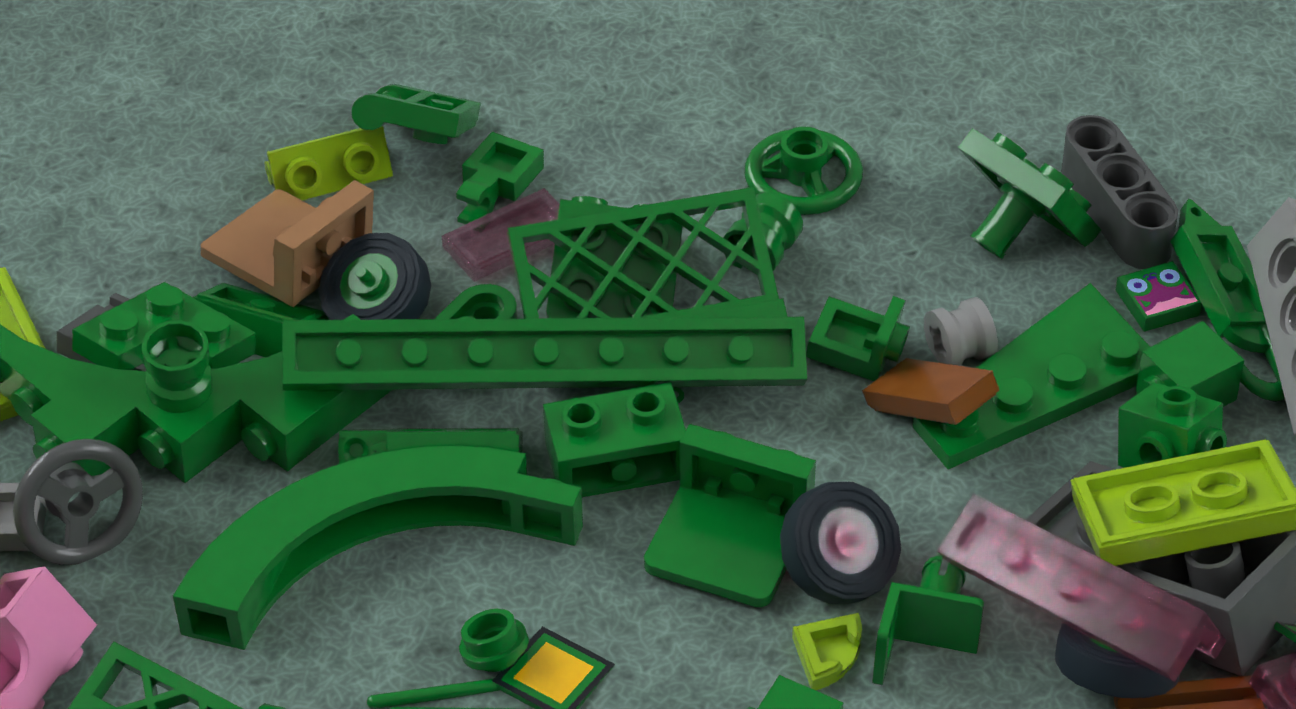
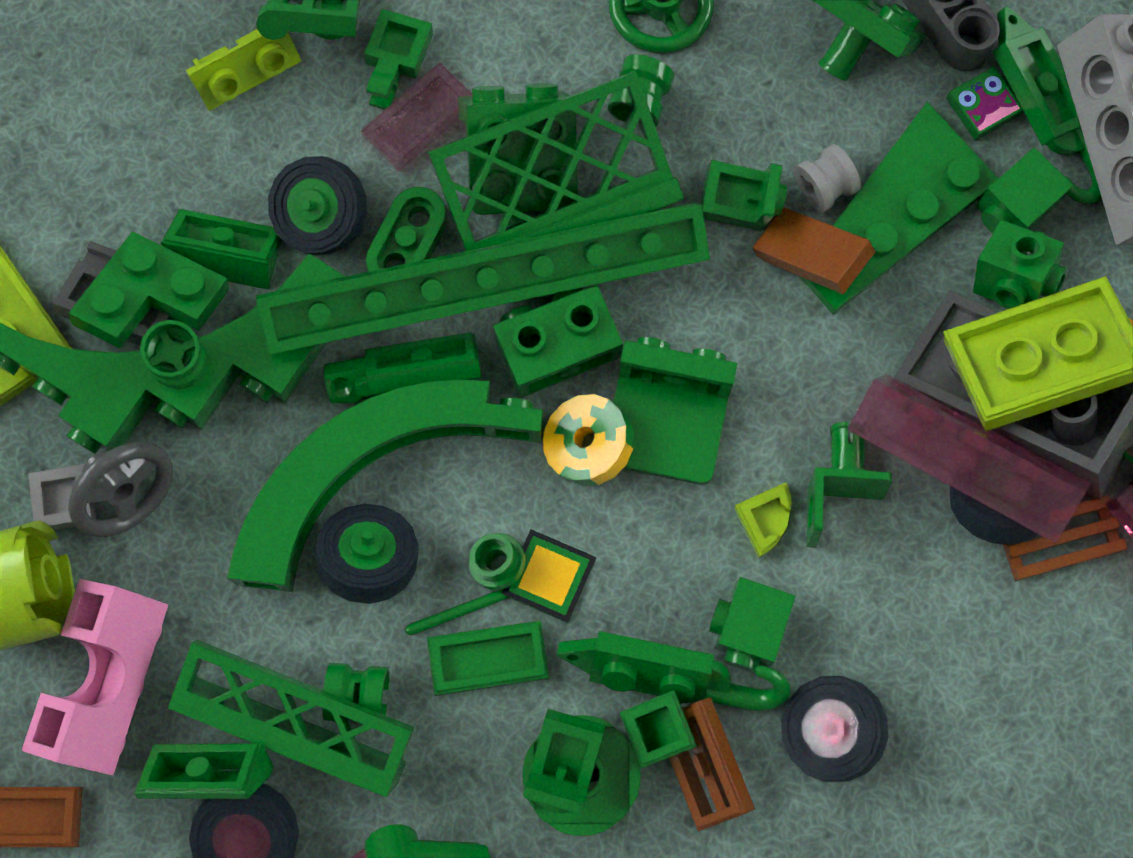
camera: 10 degrees left, 30 degrees up
(287, 242) = (229, 163): medium nougat bracket -> none
(341, 608) = (366, 553): none -> black wheel
(629, 538) = (607, 452): none -> yellow piece
(840, 542) = (764, 424): black wheel -> none

